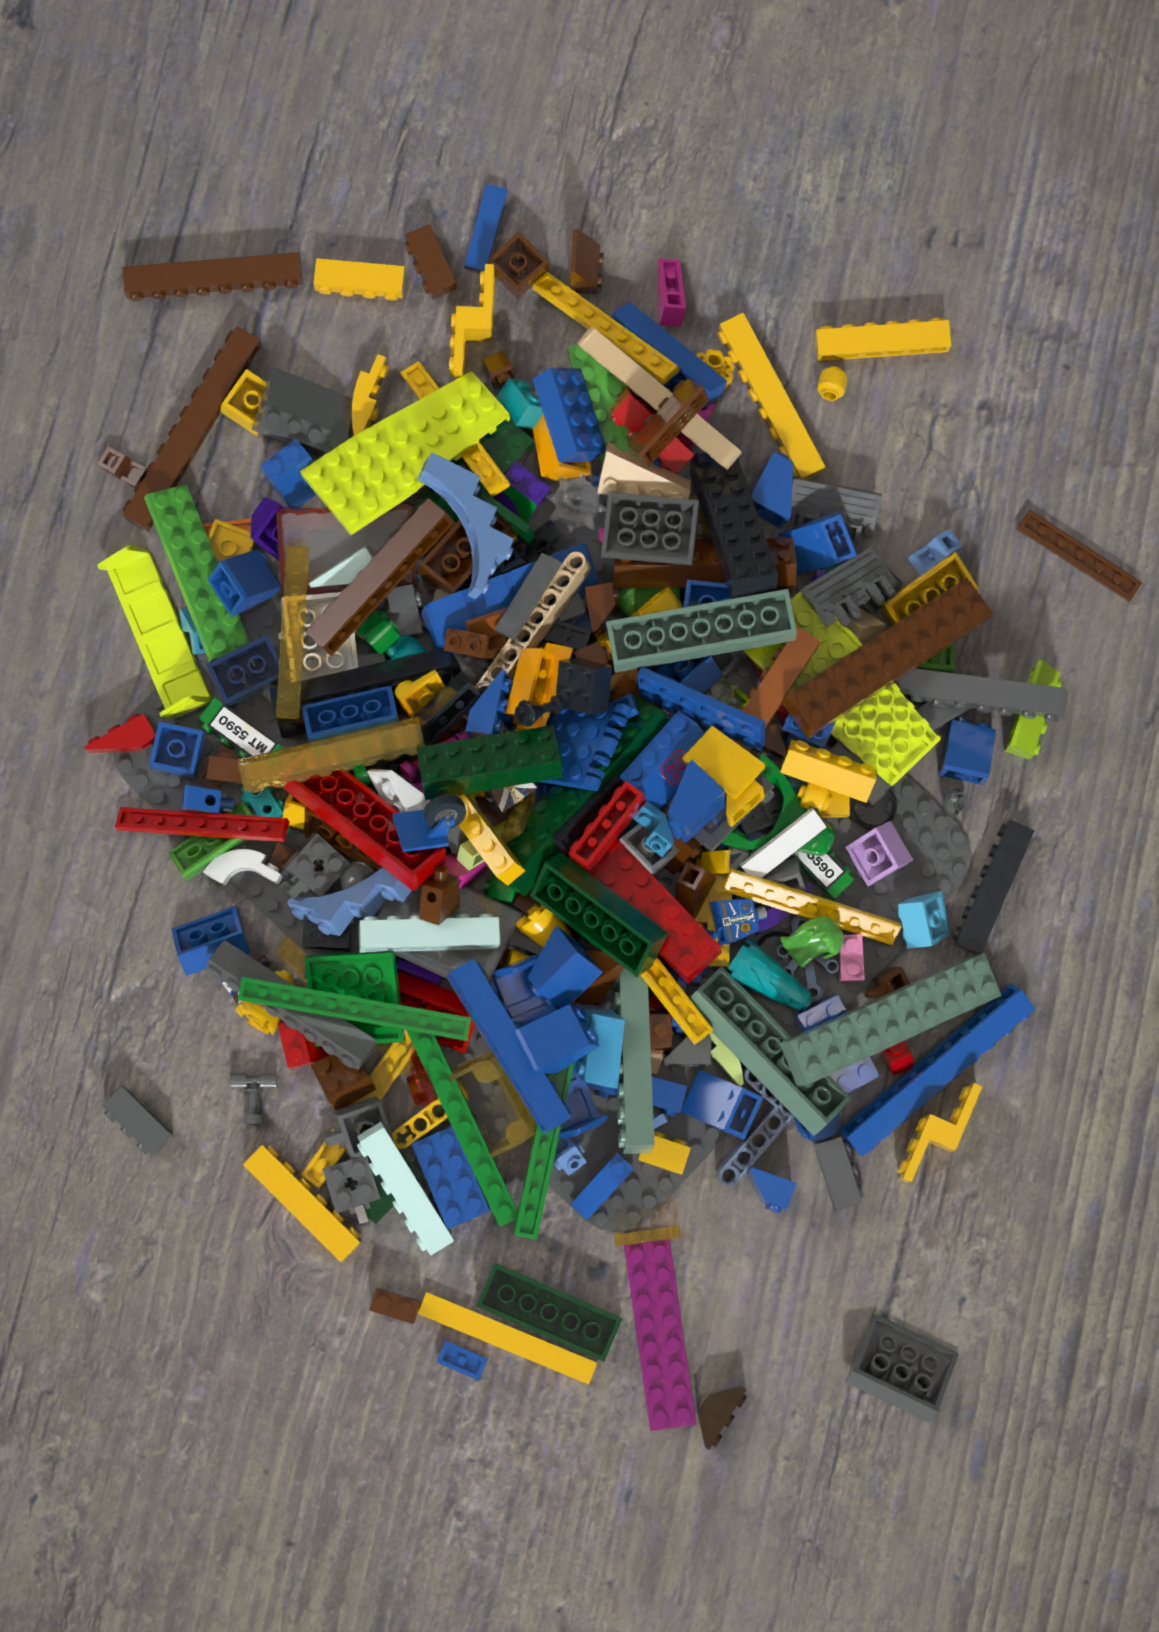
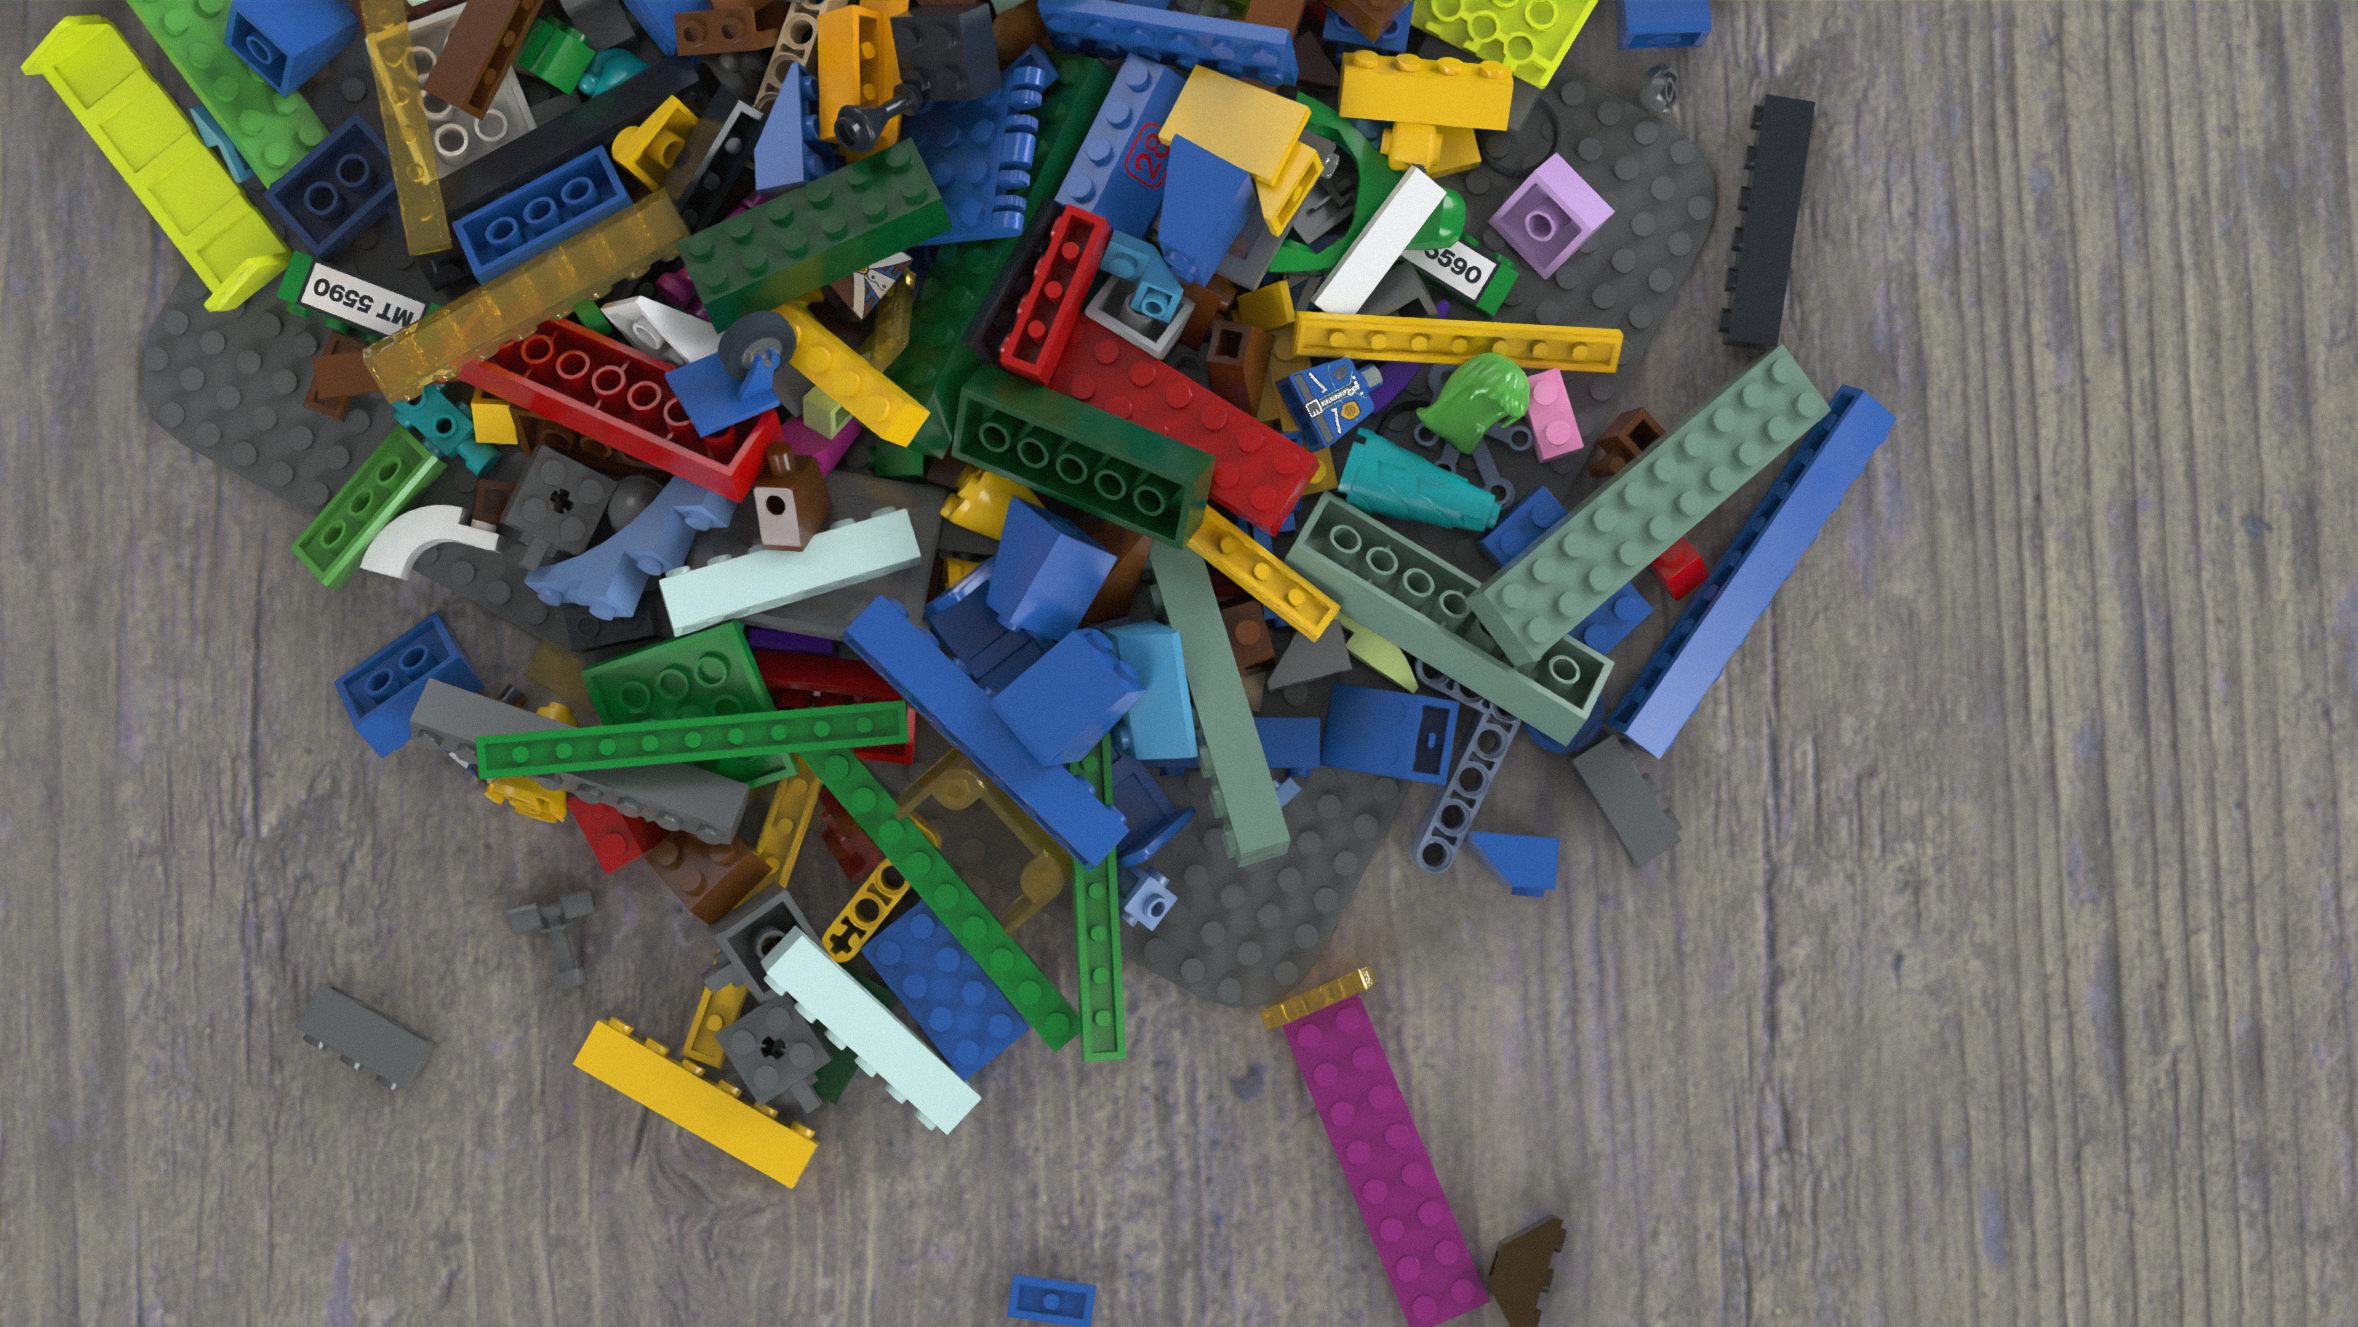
camera: 15 degrees left, 5 degrees up
(130, 737) = (163, 361): red slope -> none
(177, 750) = (255, 362): blue brick -> none
(195, 798) = (310, 438): blue torso -> none
(202, 824) = (335, 482): red tile -> none
(395, 1305) = (908, 1238): reddish brown brick -> none
(507, 1338) = (1120, 1240): yellow tile -> none
(549, 1312) = (1182, 1177): dark green brick -> none
(602, 1186) = (1216, 933): blue slope -> none
(667, 1154) = (1317, 845): yellow brick -> none
(902, 1368) = (1824, 1108): dark grey slope -> none
(924, 920) = (1660, 313): medium azure slope -> none
(939, 1132) = (1784, 680): yellow bracket -> none

